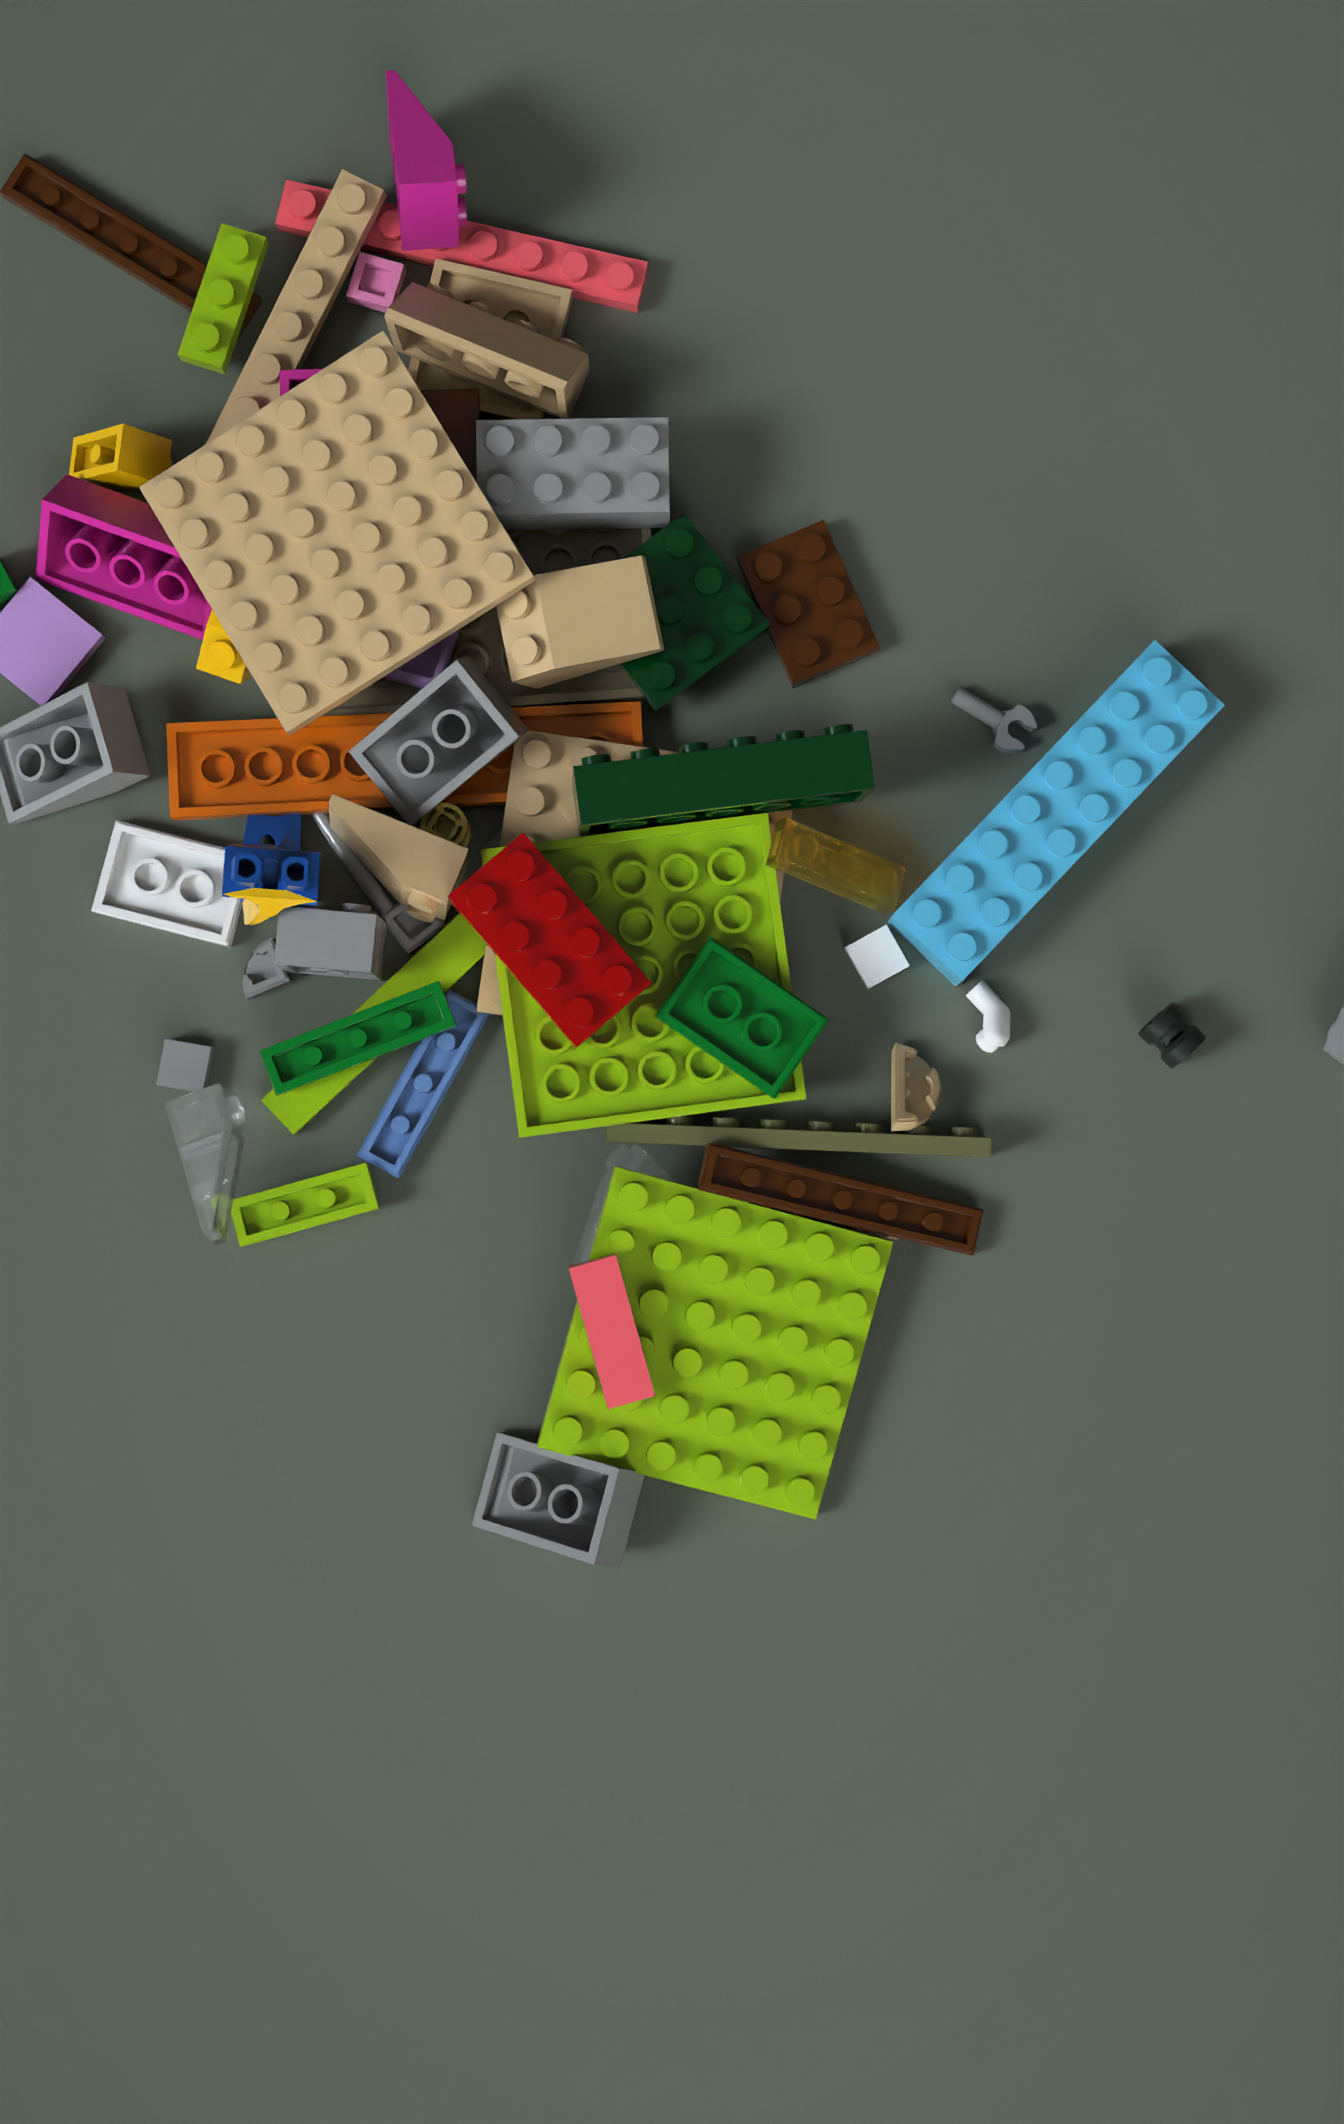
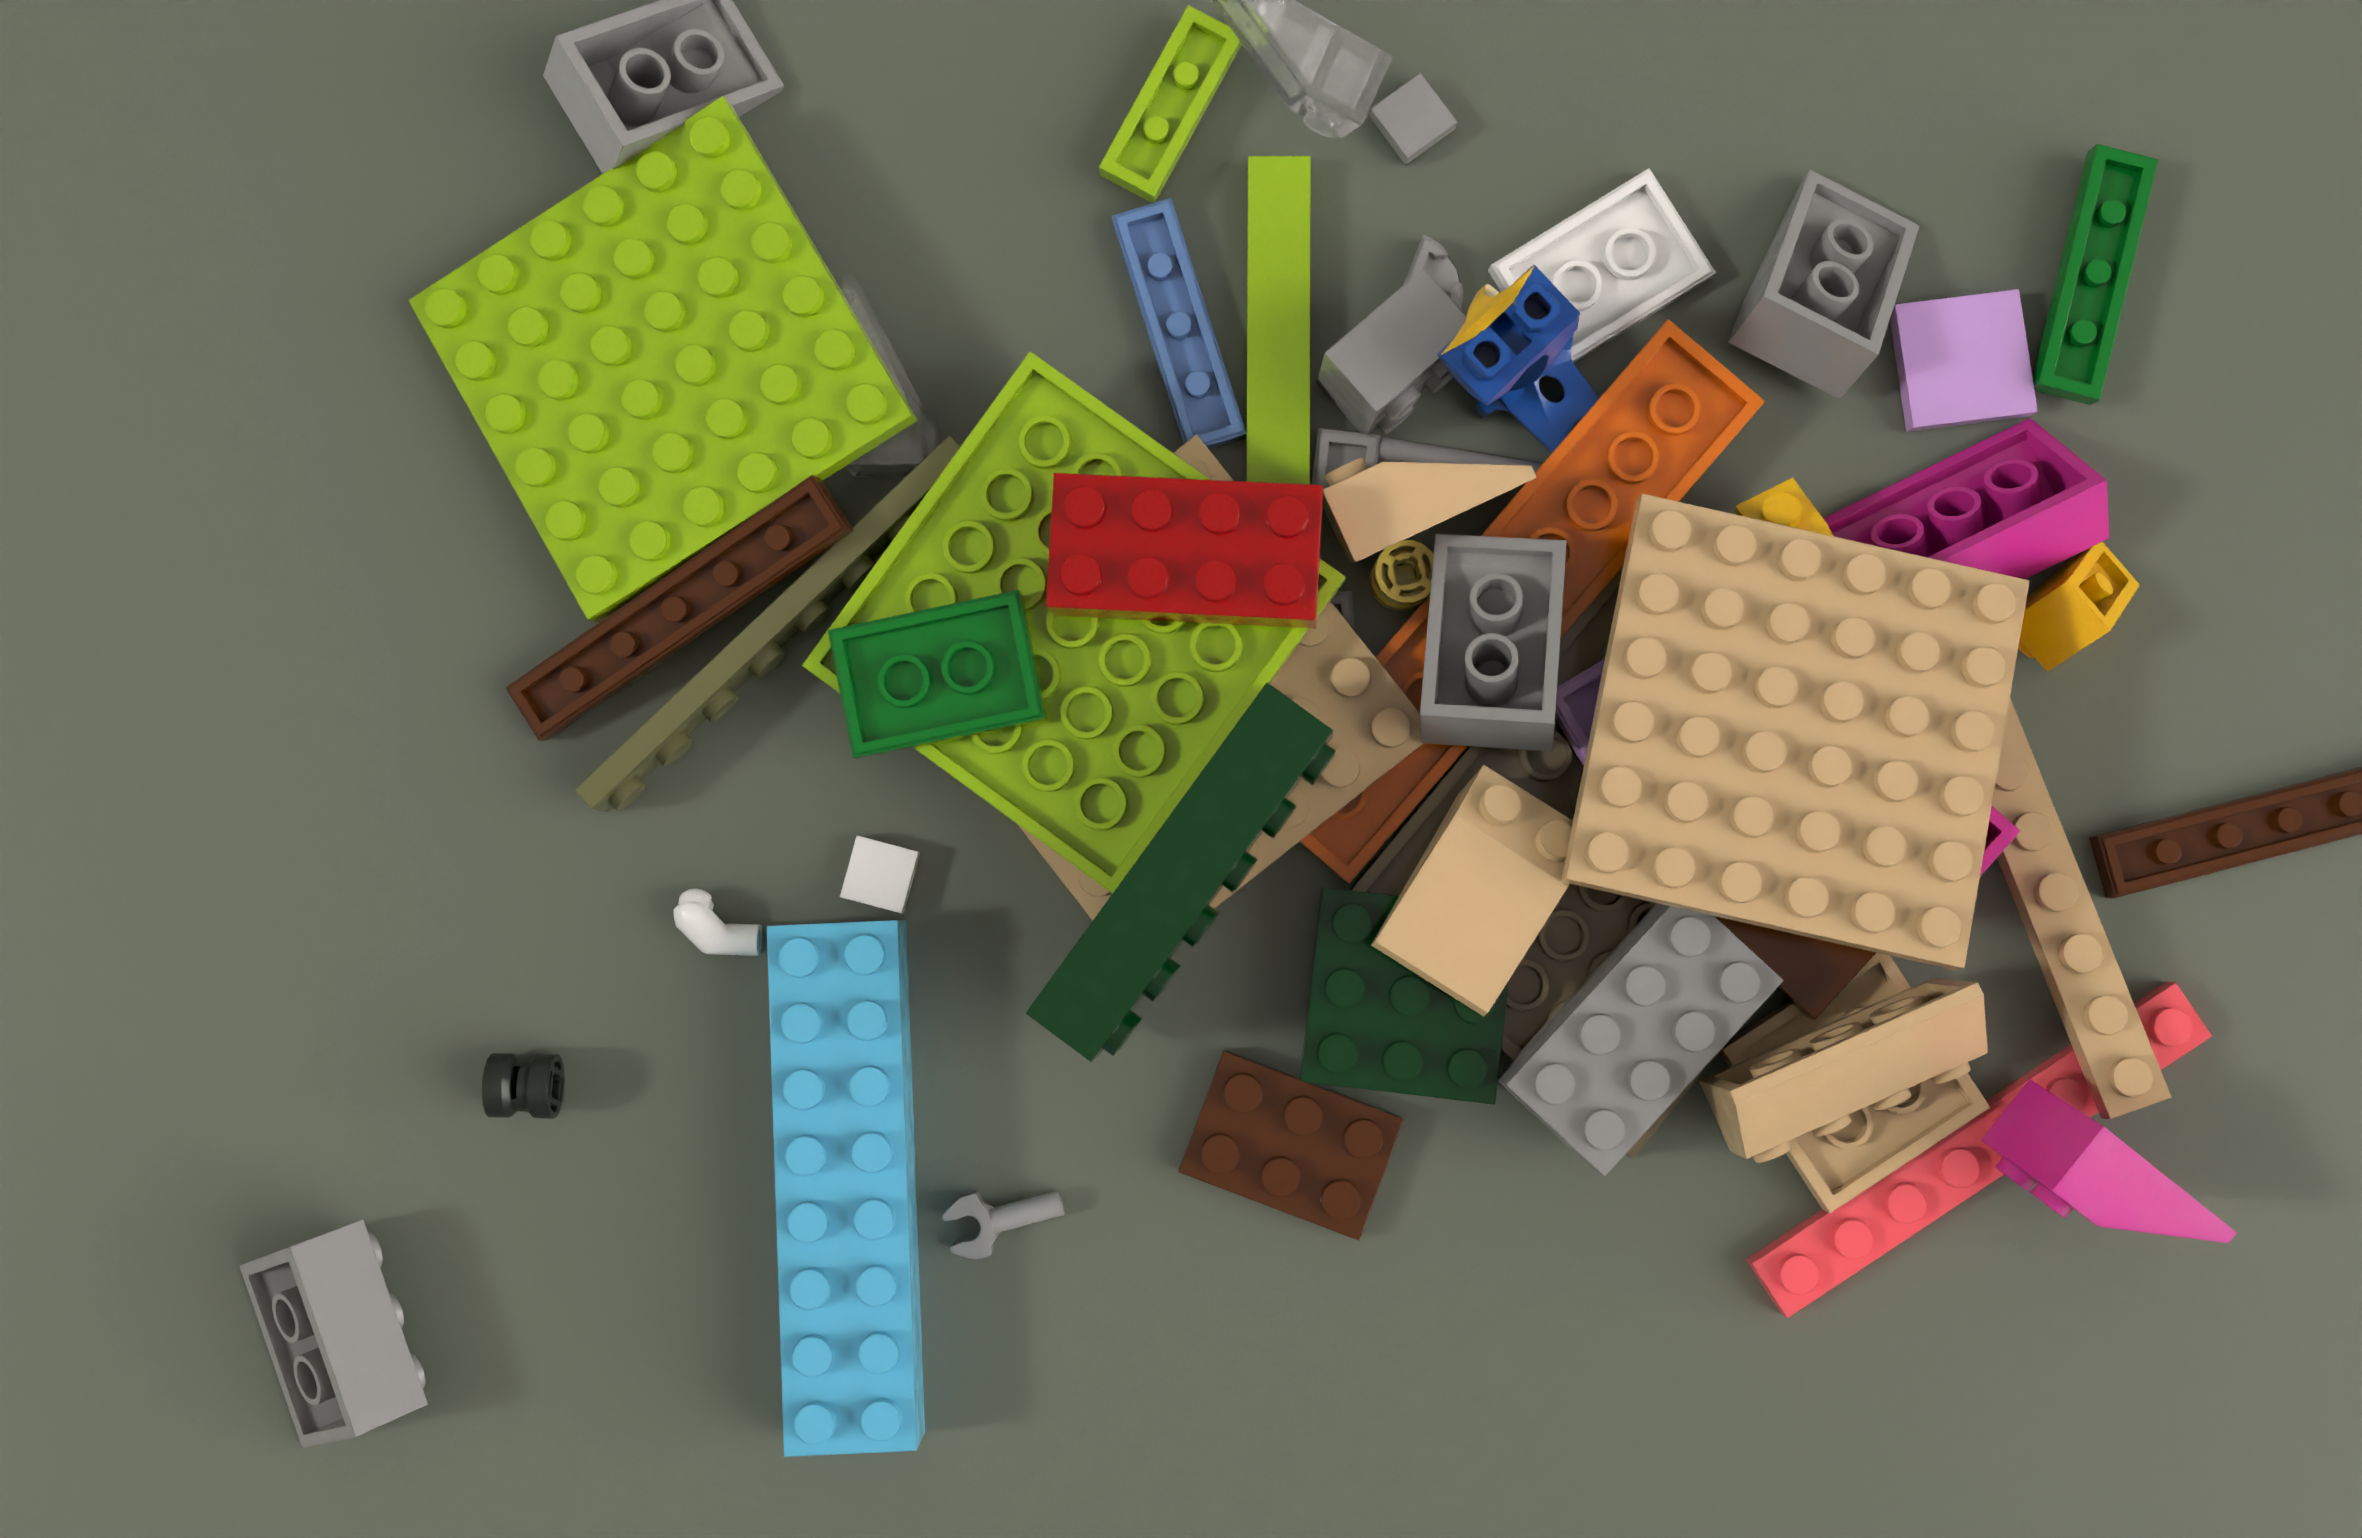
camera: 125 degrees right, 0 degrees up
(223, 298) = (2146, 857): lime plate -> none
(358, 1038) = (1278, 297): green plate -> none
(375, 282) = (2022, 1025): bright pink plate -> none
(611, 1330) = (758, 260): coral tile -> none
(835, 866) = (1001, 914): clear yellow plate -> none
(913, 1089) = (715, 783): tan tile -> none

